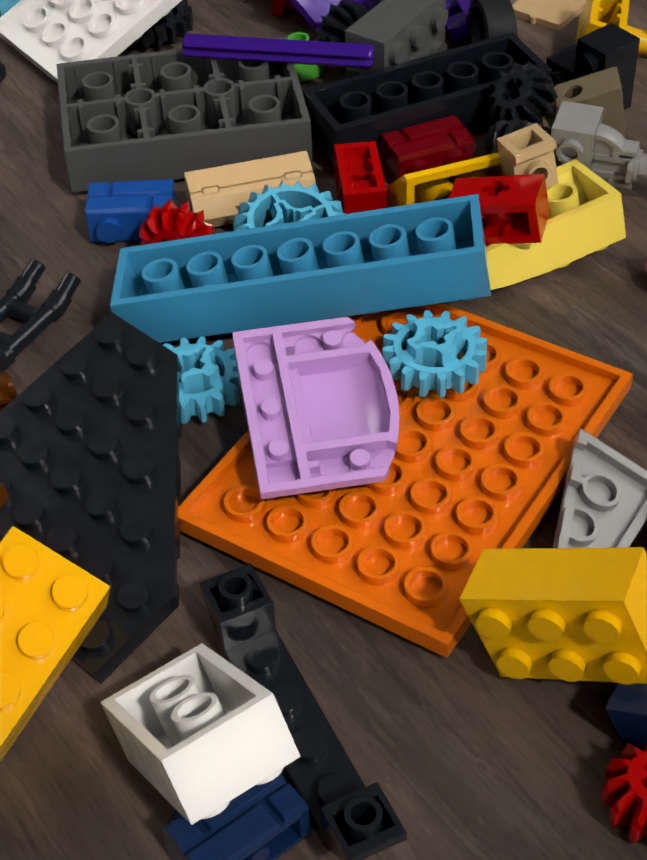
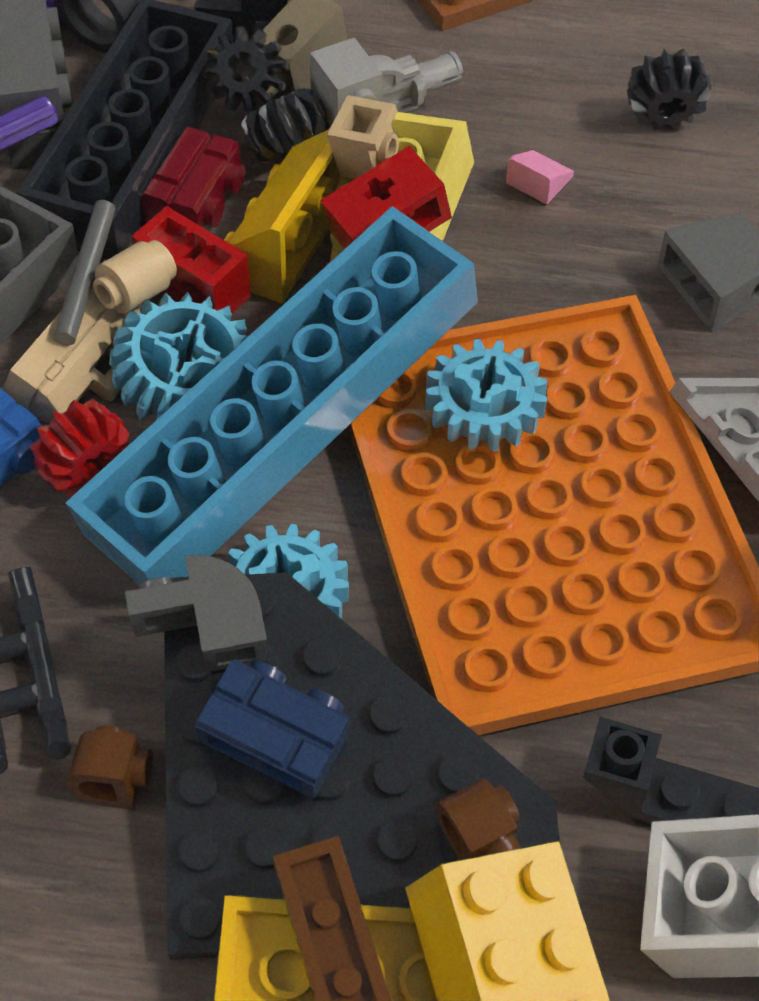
camera: 50 degrees left, 10 degrees up
(57, 418) = (274, 726): none -> dark blue brick
(96, 336) = (215, 600): none -> dark grey brick
(101, 551) = (479, 820): none -> reddish brown plate
(283, 146) = (83, 274): none -> dark grey bar
(307, 163) = (134, 276): none -> tan brick
(316, 407) = (461, 527): lavender slope -> none

